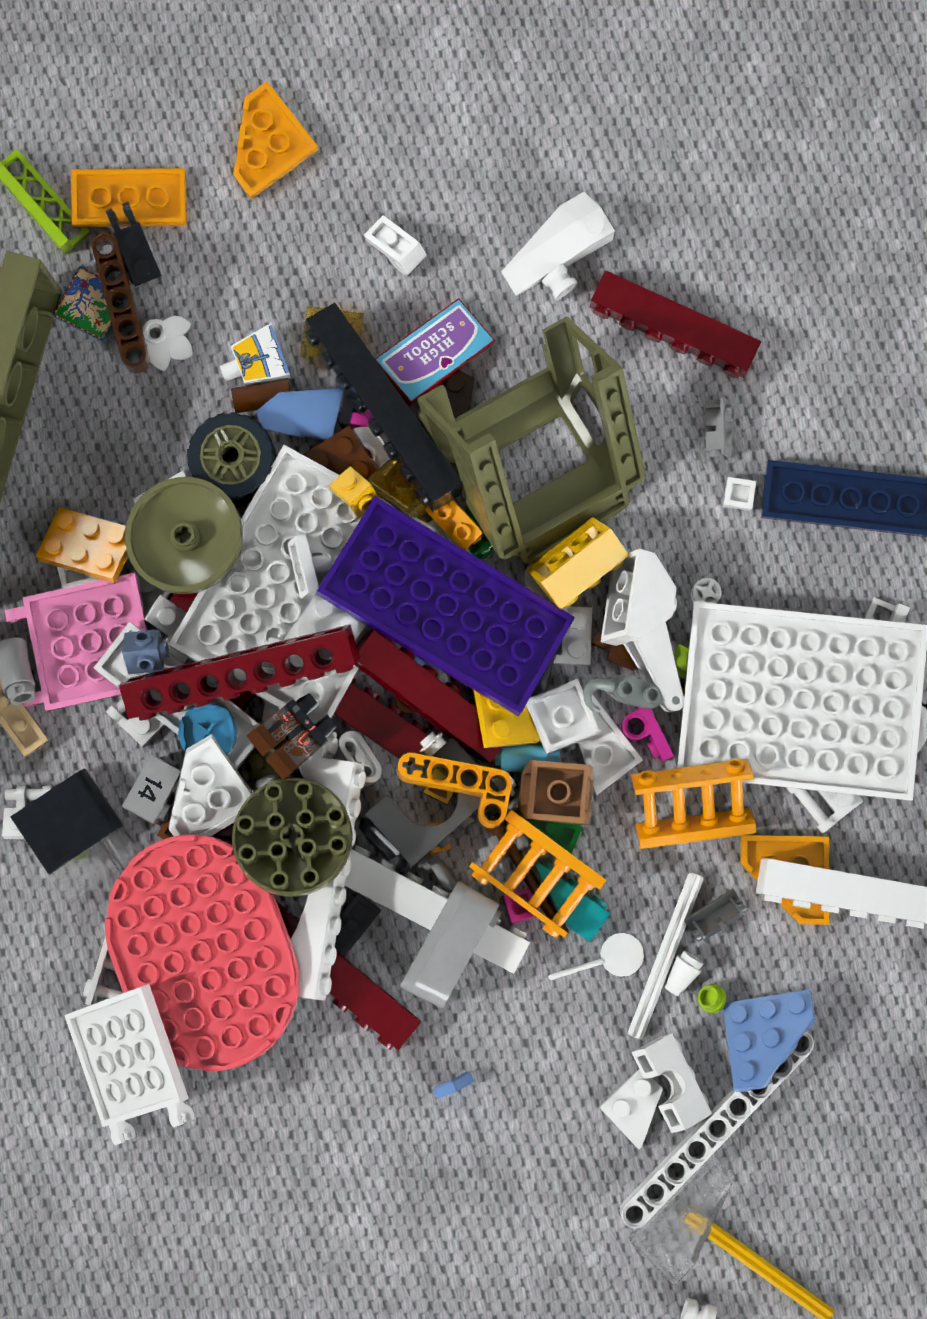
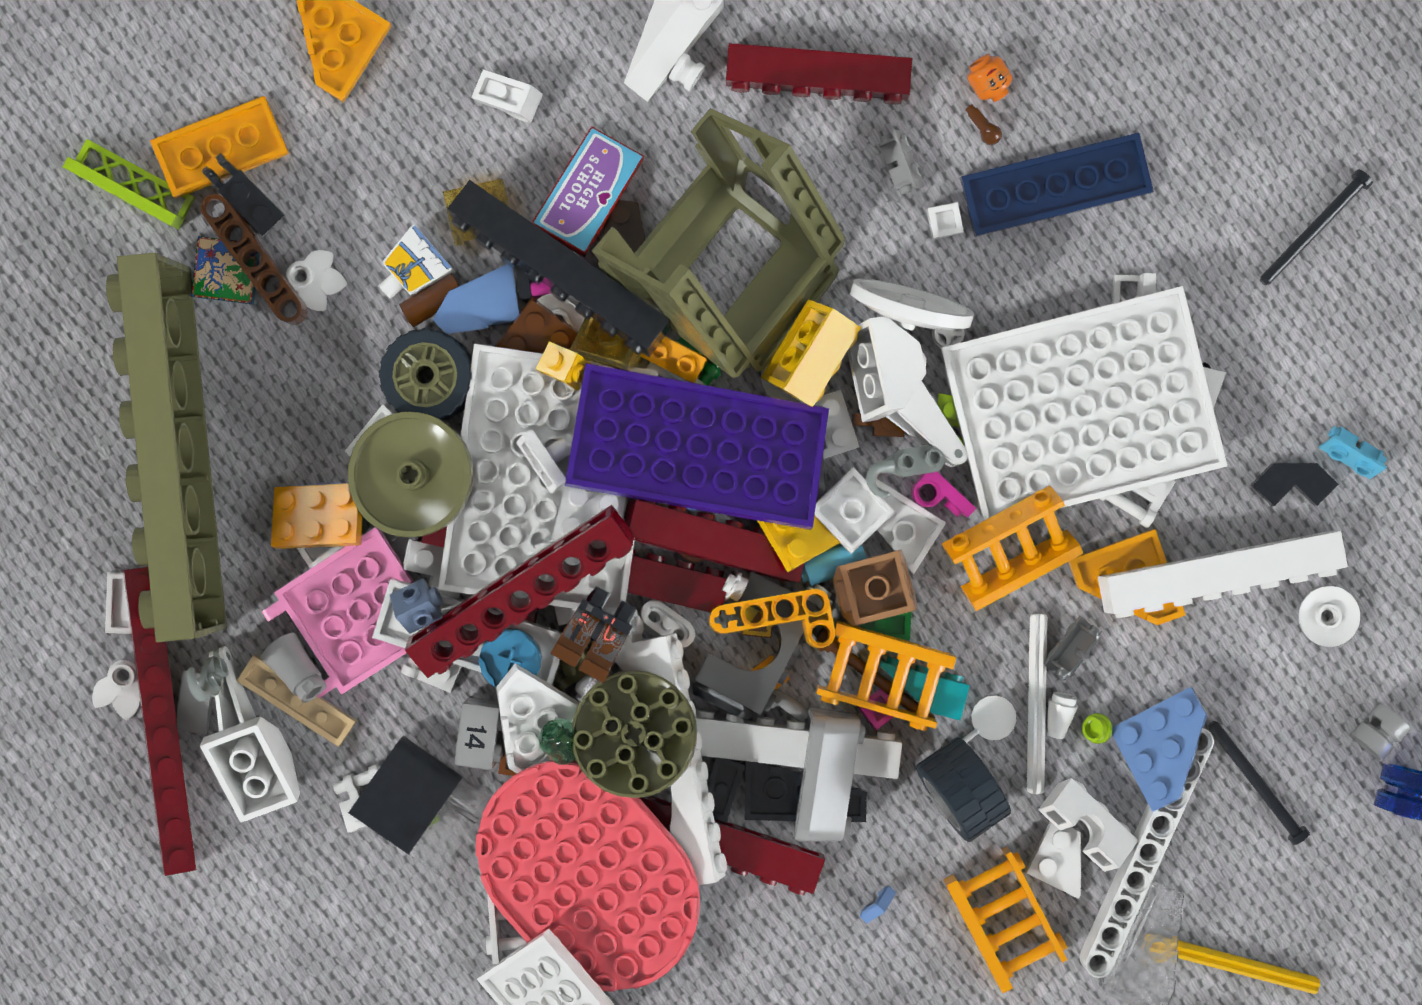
camera: 20 degrees left, 5 degrees up
(222, 818) = (557, 741): none -> clear green head
(396, 945) = (775, 791): none -> black wing
(542, 1159) = (990, 943): none -> light orange fence
(569, 1003) = (963, 789): none -> black wheel
(679, 553) = (911, 306): none -> white dish
(807, 432) = (989, 132): none -> reddish brown piece
(824, 384) = (989, 78): none -> orange head
(861, 1165) = (1297, 833): none -> black bar

